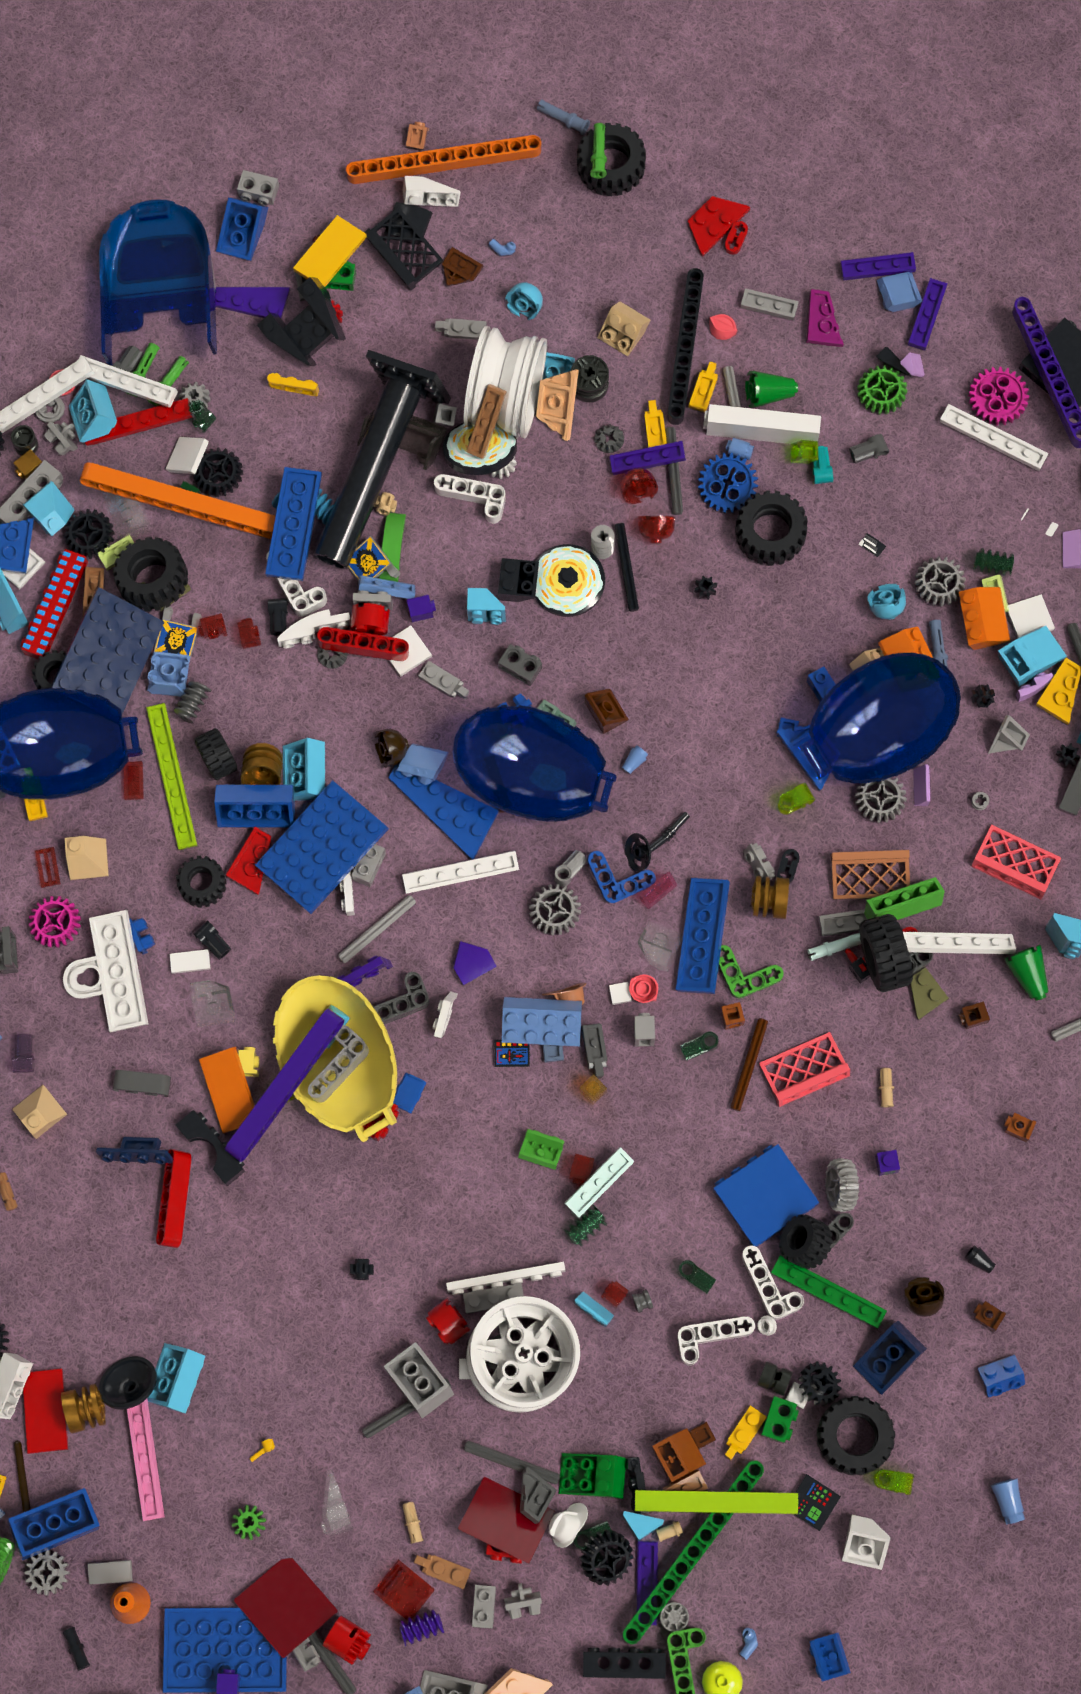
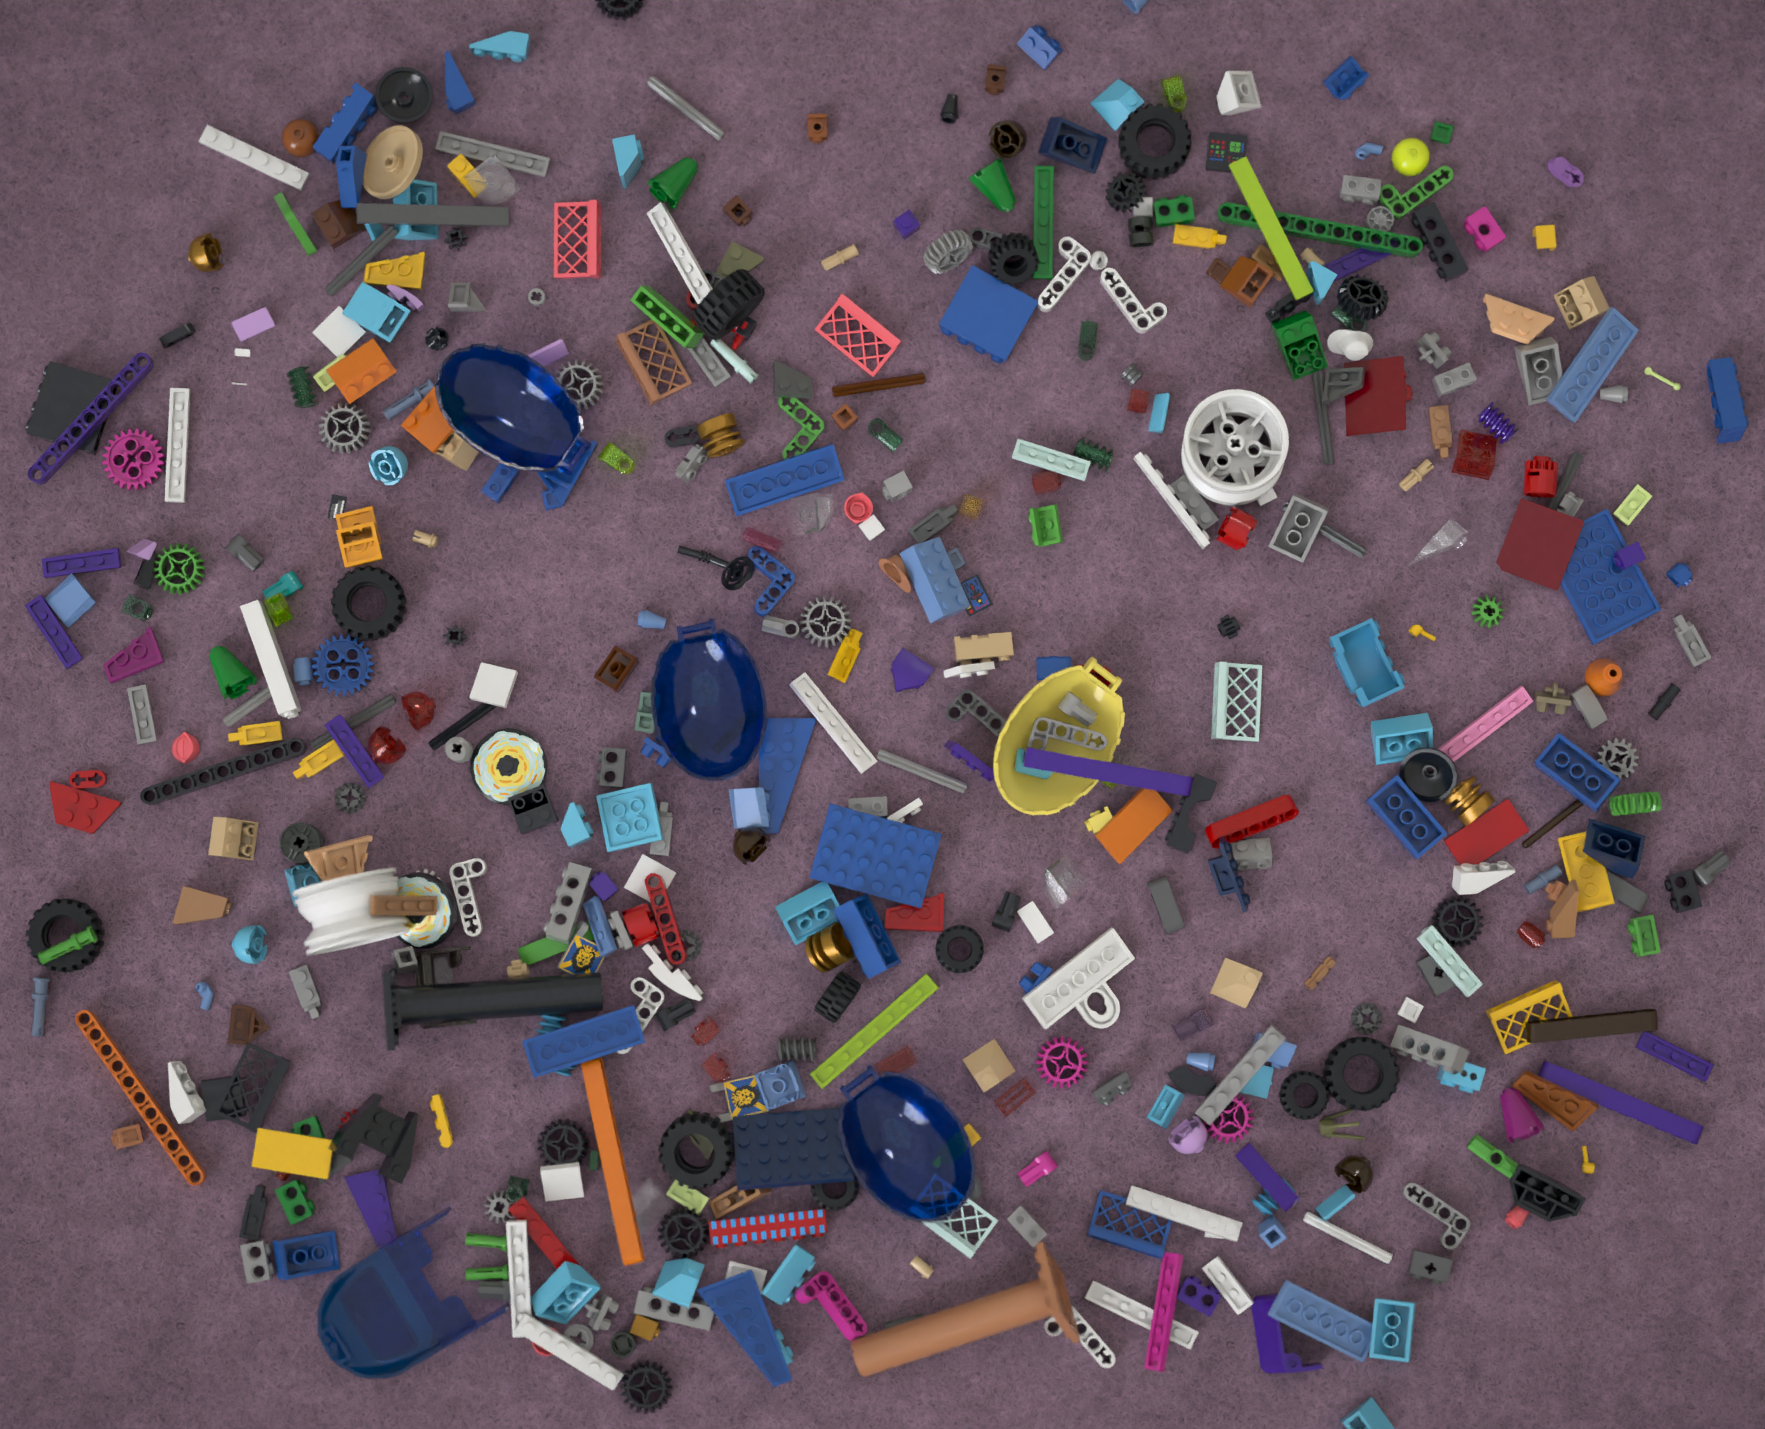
camera: 120 degrees left, 10 degrees up
(100, 1342) = (1406, 817): none -> blue brick
(137, 1541) = (1553, 697): none -> dark tan hips
(145, 1185) = (1252, 853): none -> light grey bracket
(258, 1377) = (1365, 664): none -> dark azure cylinder
(290, 234) = (290, 1204): none -> green brick
(298, 204) = (254, 1215): none -> black hinge
(298, 1227) = (1220, 705): none -> light aqua fence
(360, 1086) = (1074, 707): none -> light grey piece
(421, 580) = (564, 932): none -> light grey brick
(458, 1035) = (983, 648): none -> tan wedge
(468, 657) = (629, 817): none -> medium azure plate
(514, 912) = (846, 656): none -> yellow hinge
(580, 276) = (200, 906): none -> medium nougat slope
(645, 599) = (493, 685): none -> white tile
(713, 1614) = (1360, 189): none -> light grey bracket
(790, 985) = (790, 382): none -> dark grey wing
(802, 606) = (426, 539): none -> tan pin
(834, 546) = (359, 537): none -> light orange bracket
(867, 334) = (129, 608): none -> clear green brick
(885, 1263) = (995, 185): none -> green cone
(910, 1421) = (1117, 103): none -> medium azure slope

